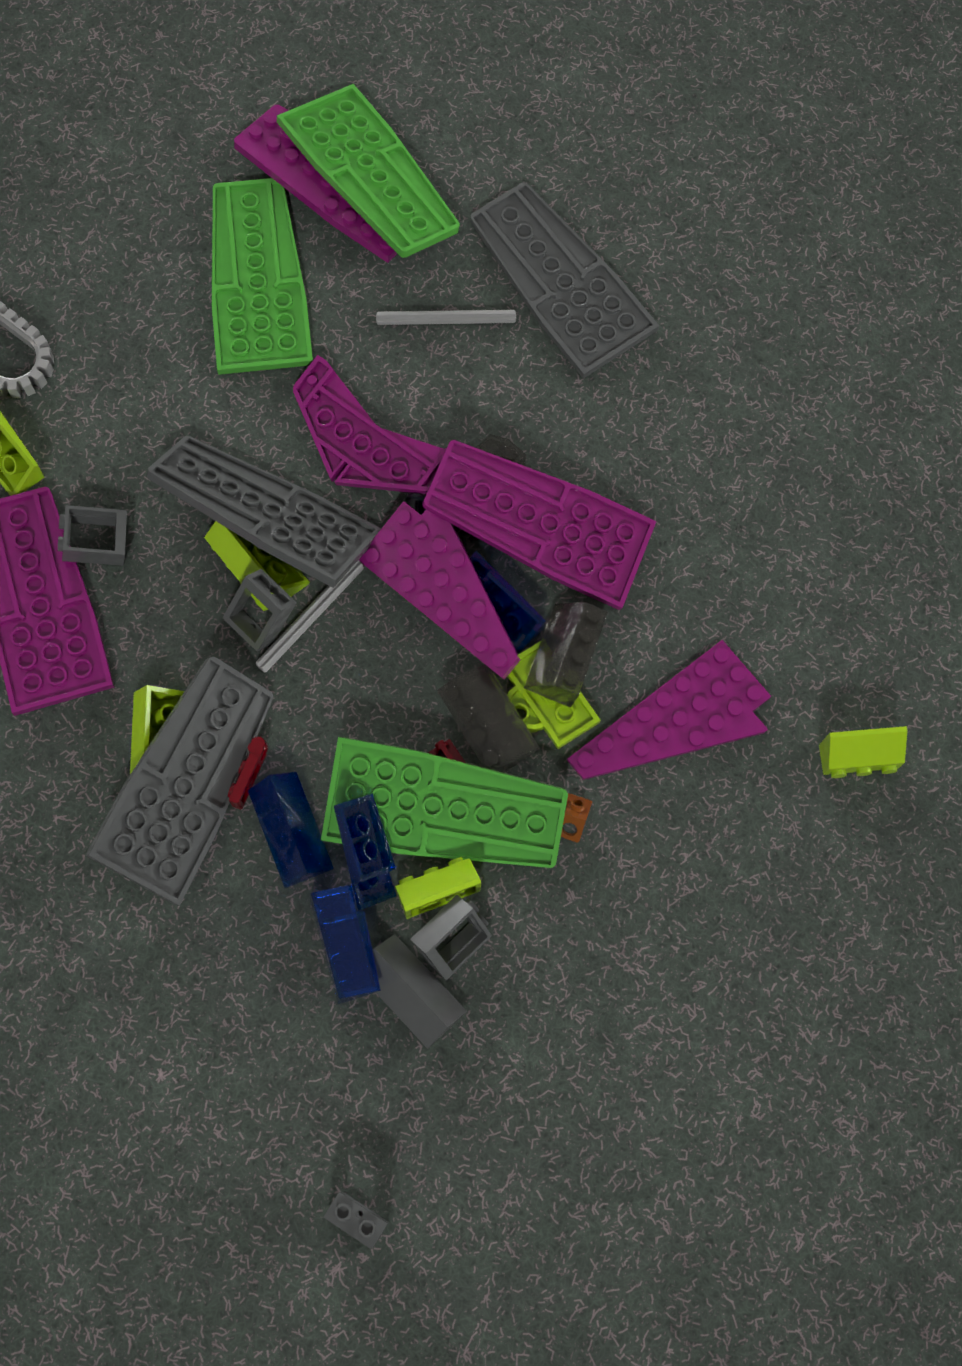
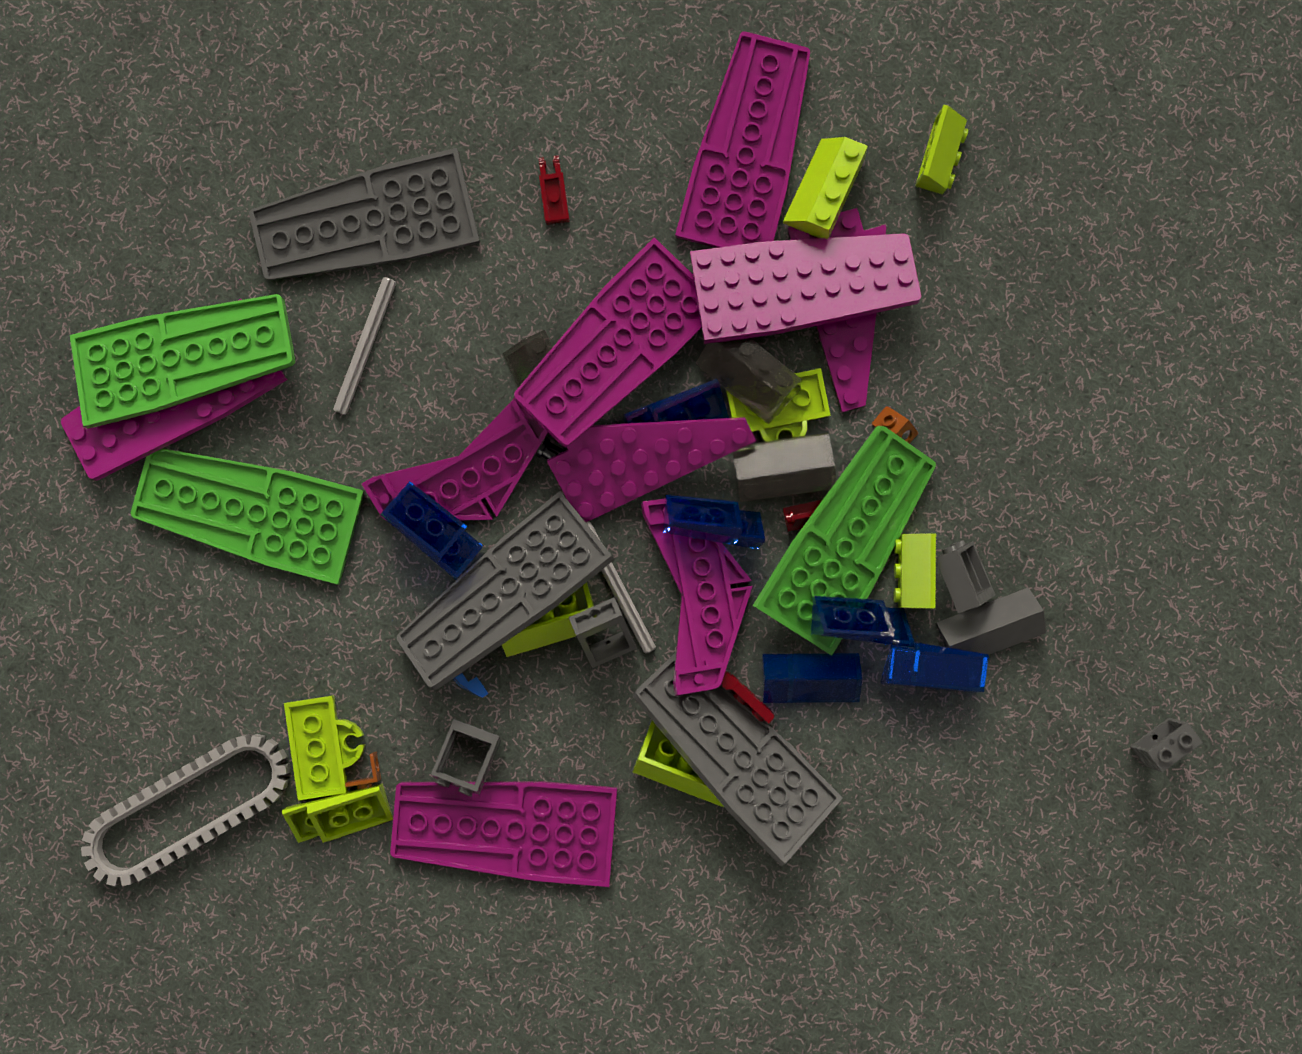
camera: 65 degrees left, 15 degrees up
(49, 464) = (367, 782): none -> dark orange bracket
(60, 411) = (320, 747): none -> lime plate
(165, 517) = (474, 686): none -> blue slope
(297, 428) = (432, 529): none -> clear blue slope
(323, 702) = (708, 606): none -> magenta wing
(408, 673) = (713, 521): none -> clear blue slope
(657, 421) = (553, 193): none -> dark red hinge
(673, 666) = (800, 283): none -> wing
(777, 659) = (826, 186): none -> lime slope
(778, 575) = (747, 146): none -> magenta wing

